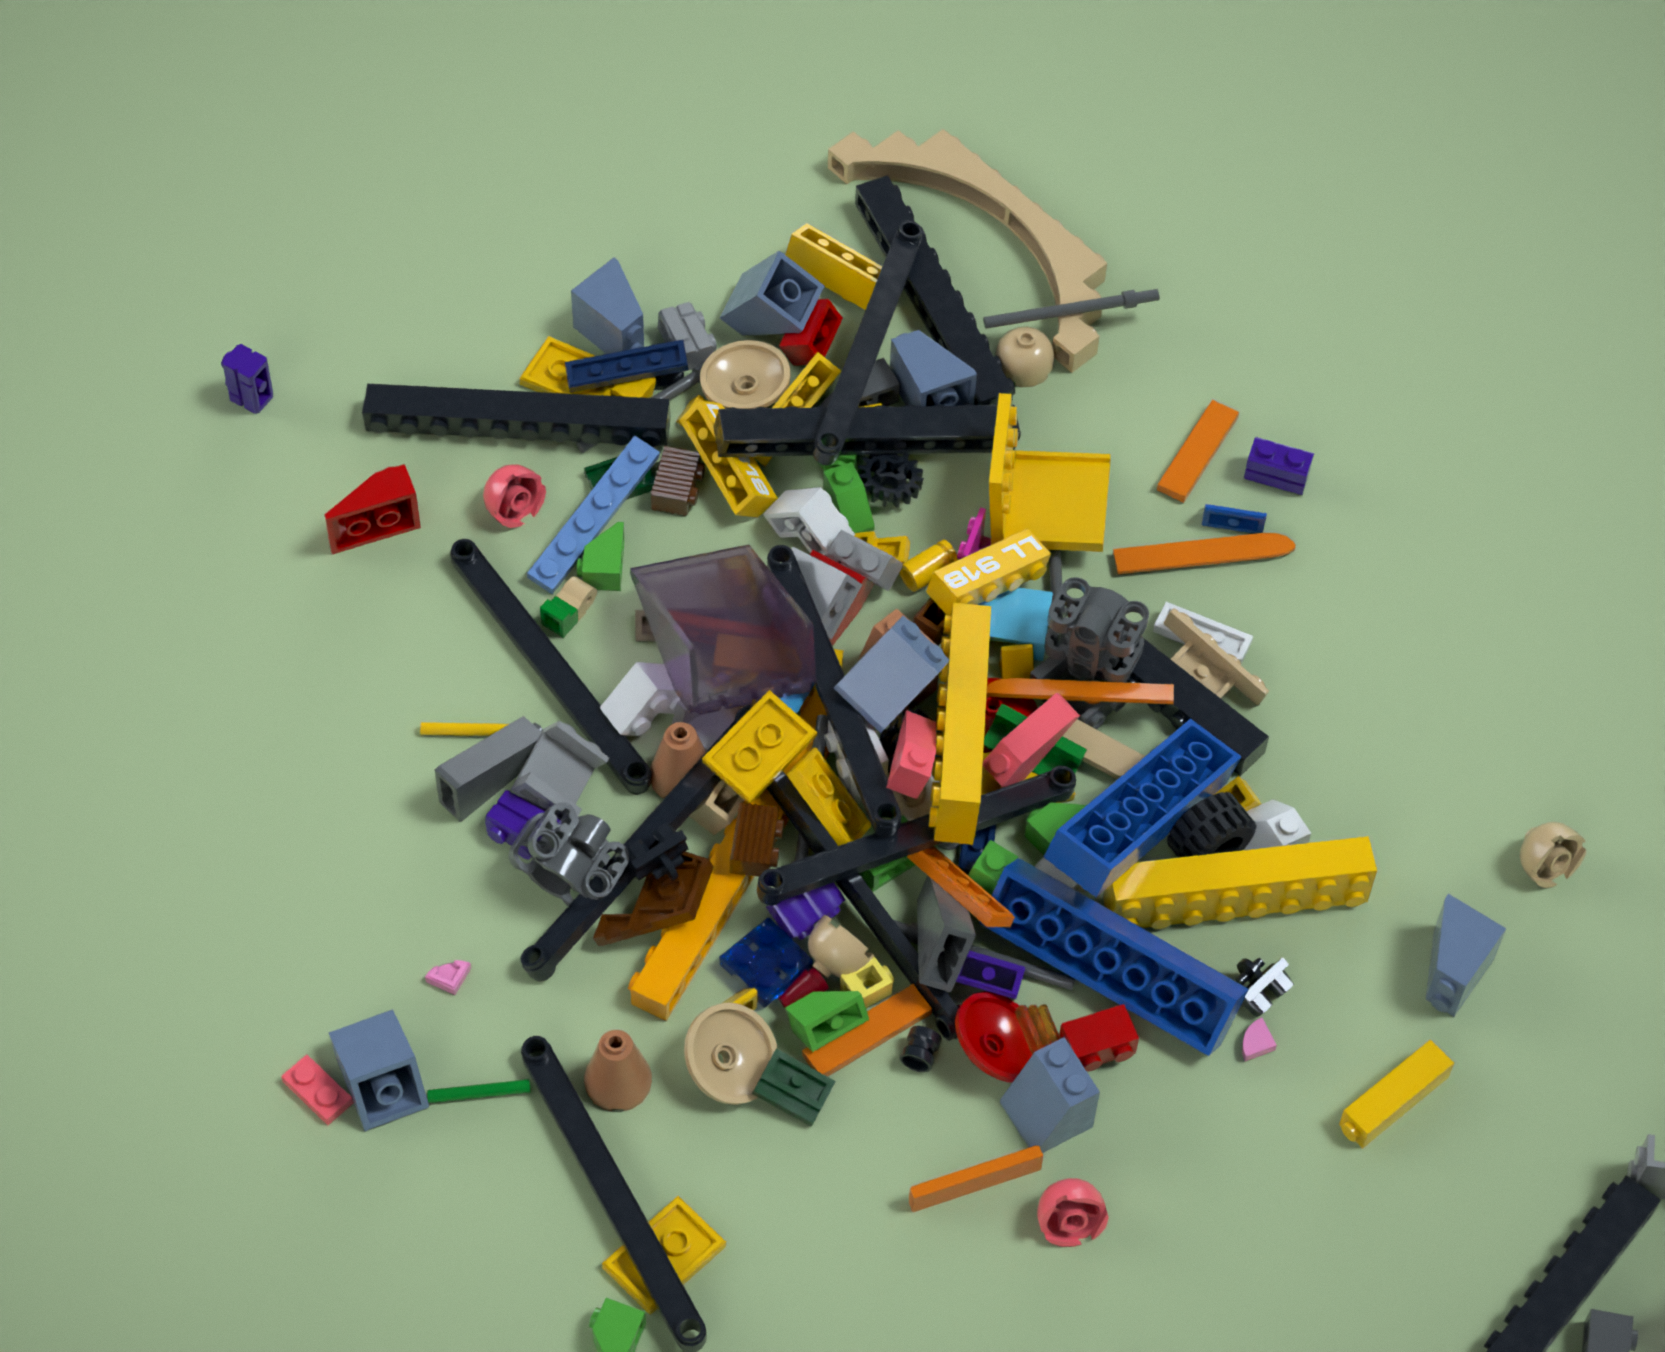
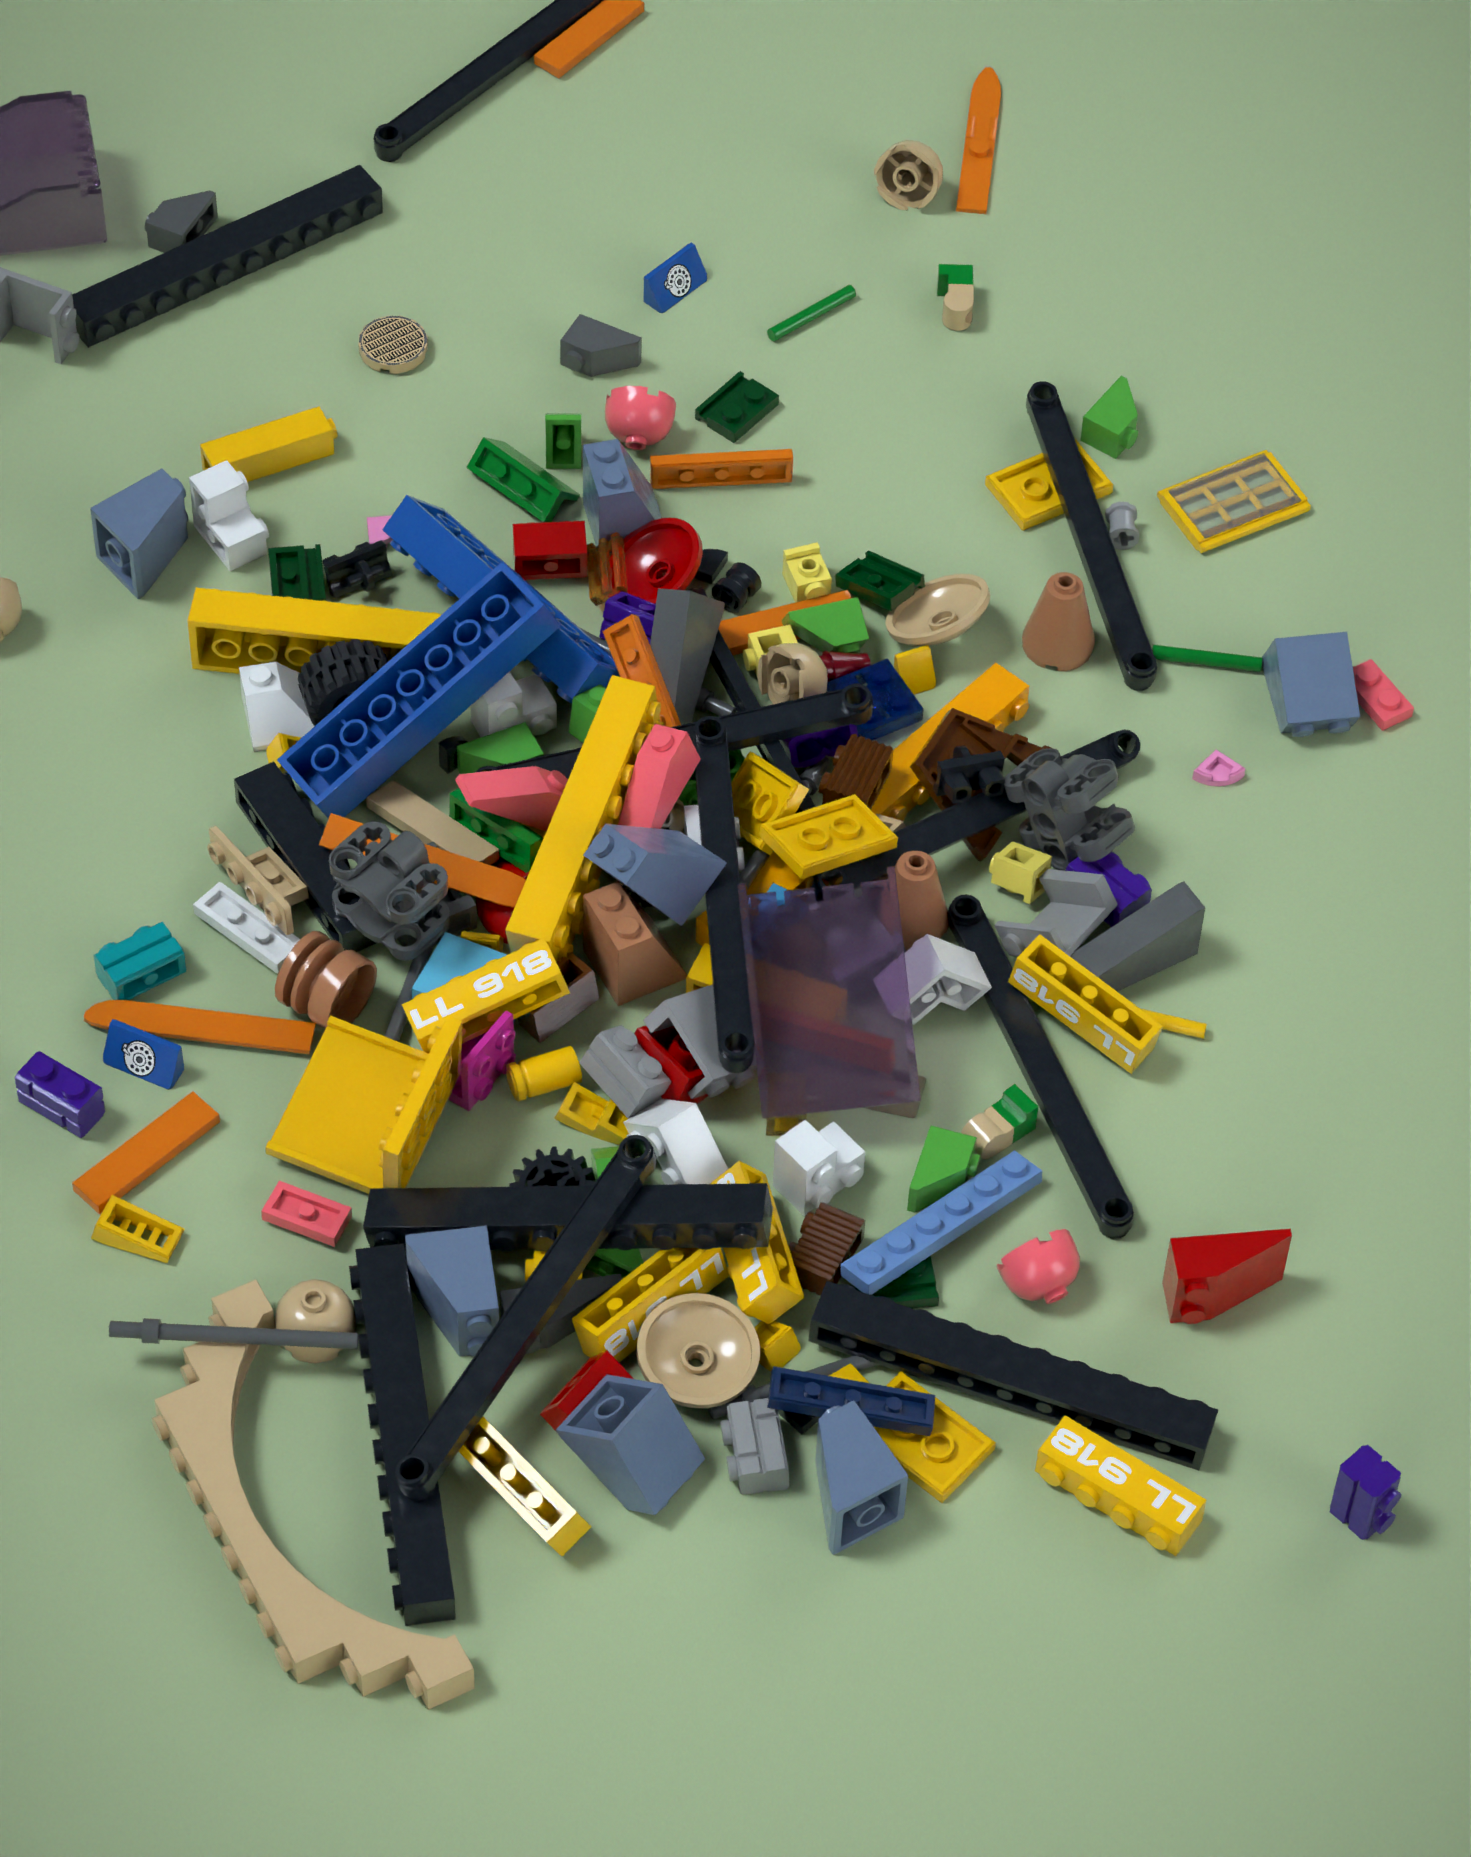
camera: 165 degrees left, 5 degrees down
(421, 360) = (1120, 1486): none -> yellow brick
(482, 1280) = (1233, 501): none -> clear piece
(517, 695) = (1085, 1003): none -> yellow brick
(583, 1211) = (1122, 528): none -> light grey bush
(608, 813) = (1019, 870): none -> light yellow brick
(703, 526) = (815, 1164): none -> white brick
(861, 1089) = (806, 572): none -> light yellow brick
(958, 1077) = (711, 564): none -> black tile
(986, 1270) = (737, 407): none -> dark green plate
(1062, 427) = (306, 1213): none -> coral plate
(1125, 579) = (325, 980): none -> nougat wheel
(1133, 1167) = (563, 440): none -> bright green slope
(1141, 1295) = (598, 348): none -> dark grey slope
(1153, 1129) = (520, 478): none -> green panel
(1187, 383) = (121, 1239): none -> yellow slope
(1271, 582) = (139, 962): none -> teal brick
(1310, 965) = (297, 572): none -> dark green plate
(1338, 1259) = (393, 344): none -> tile
(1394, 998) = (225, 516): none -> white brick

